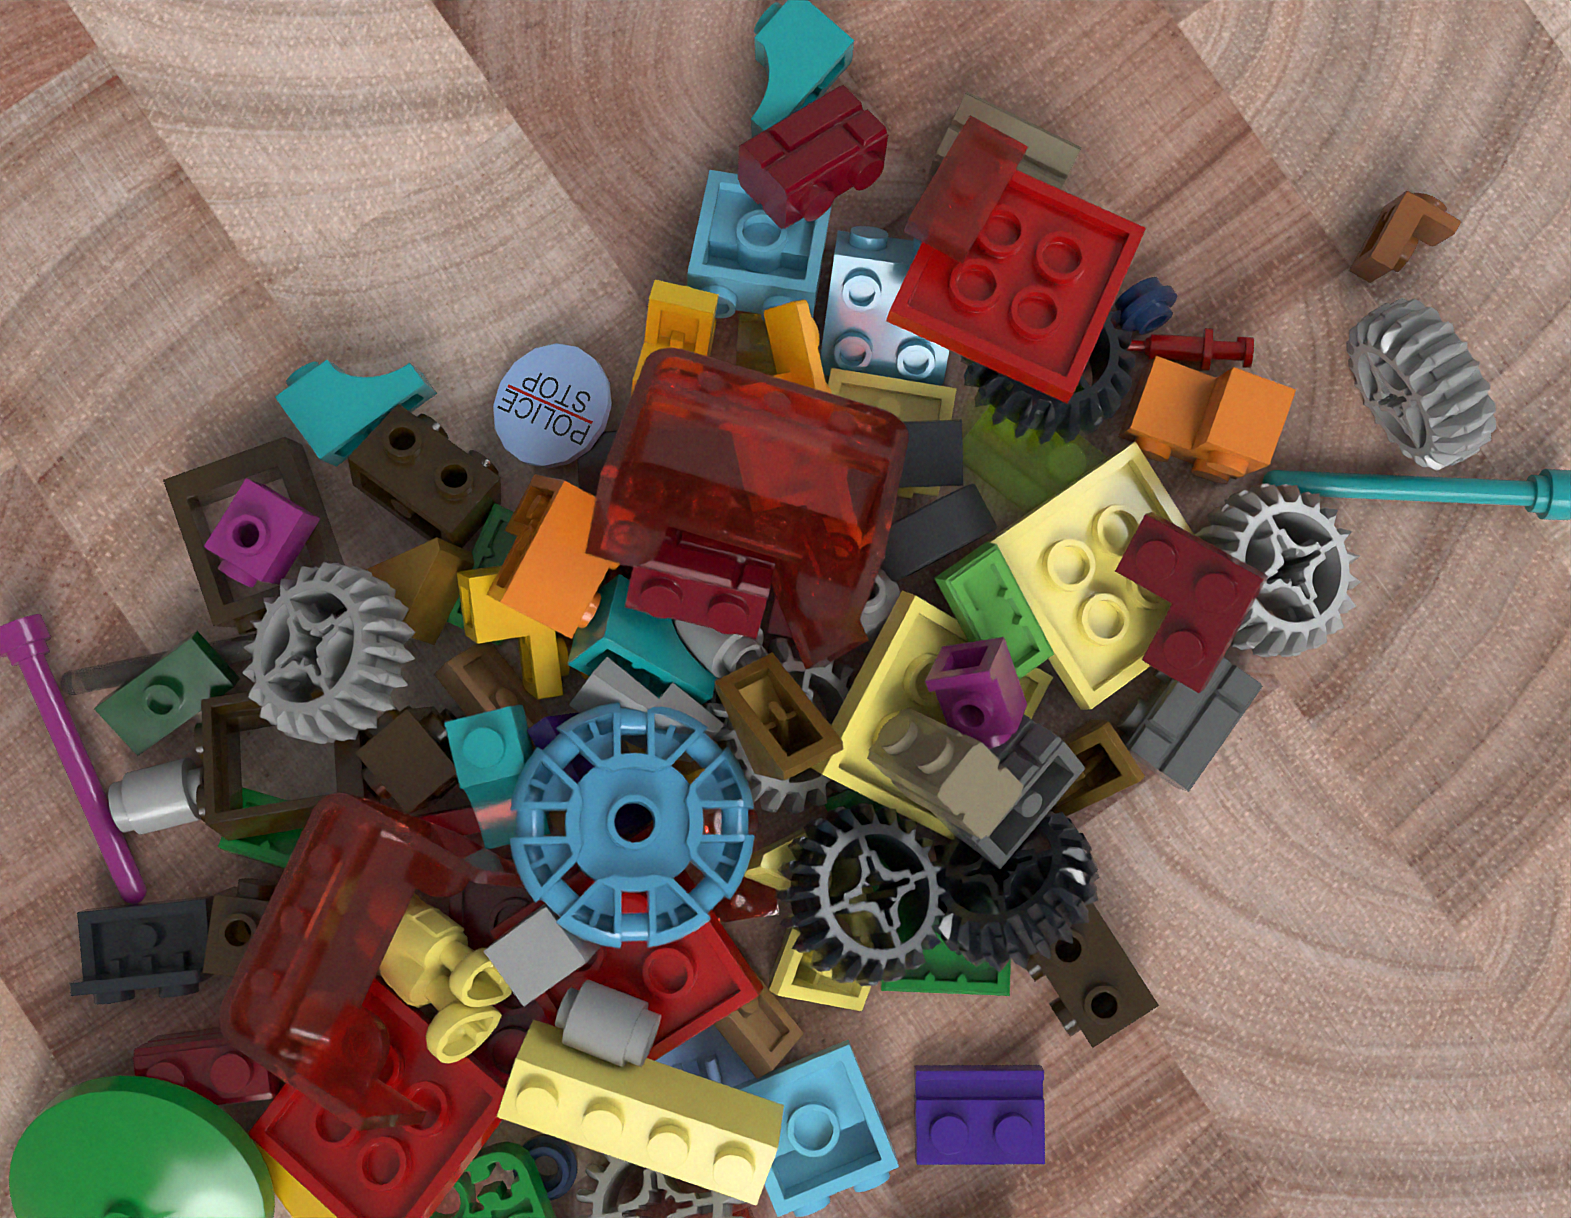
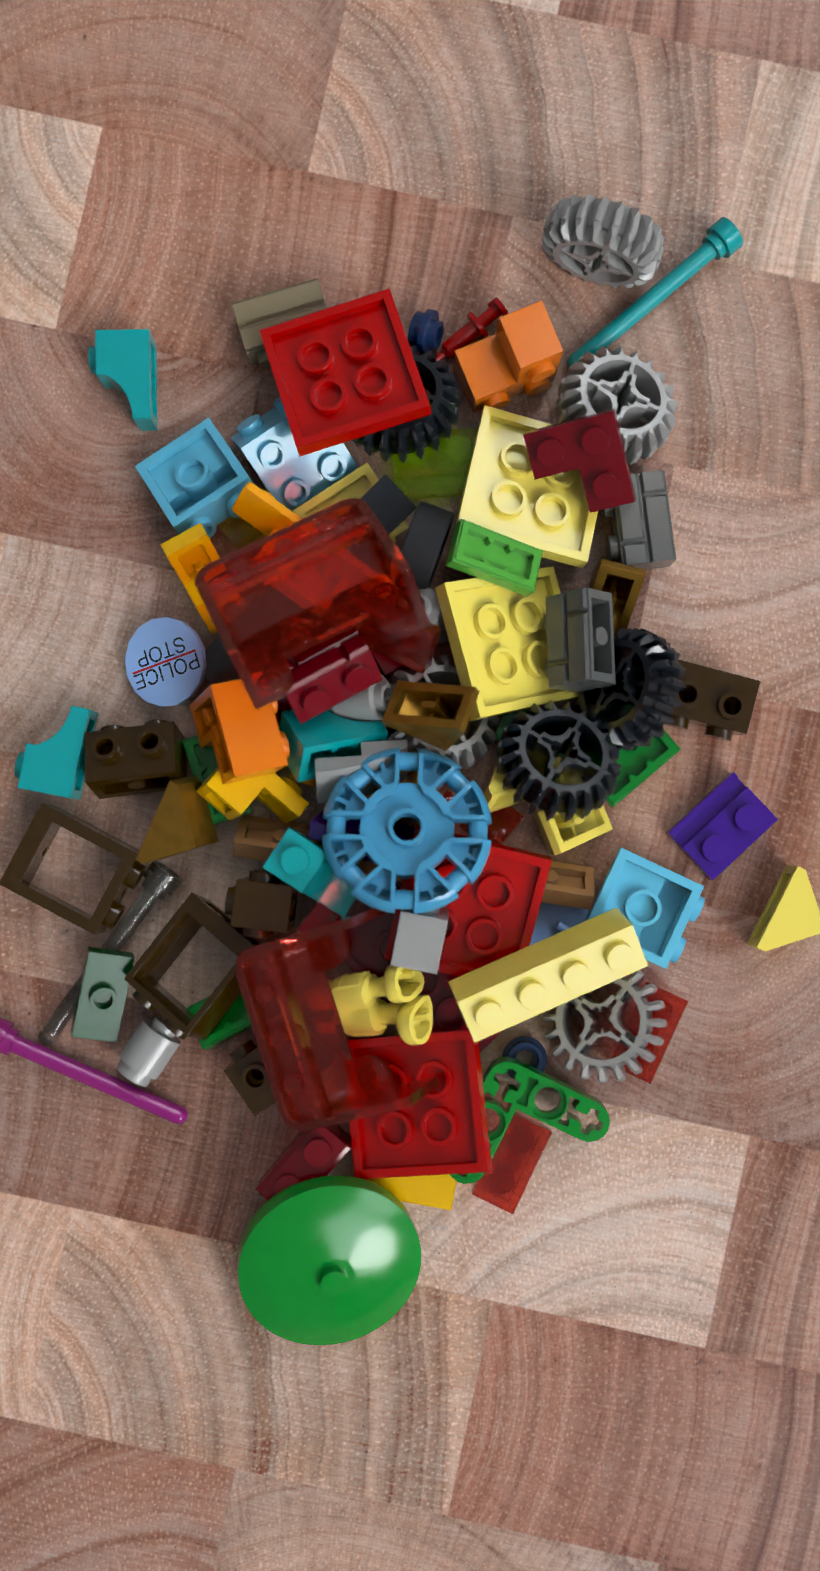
camera: 45 degrees left, 0 degrees up
(143, 949) = (212, 1136): black bracket -> none
(260, 535) = (77, 862): magenta brick -> none
(347, 656) = (180, 879): light grey gear -> none
(607, 1024) = (488, 945): light grey brick -> none
(813, 158) = (183, 409): dark red brick -> none
(945, 772) = (541, 657): dark tan brick -> none
(965, 189) = (278, 350): clear red plate -> none
(978, 690) = (517, 592): magenta brick -> none
(1398, 231) = (520, 174): dark orange bracket -> none

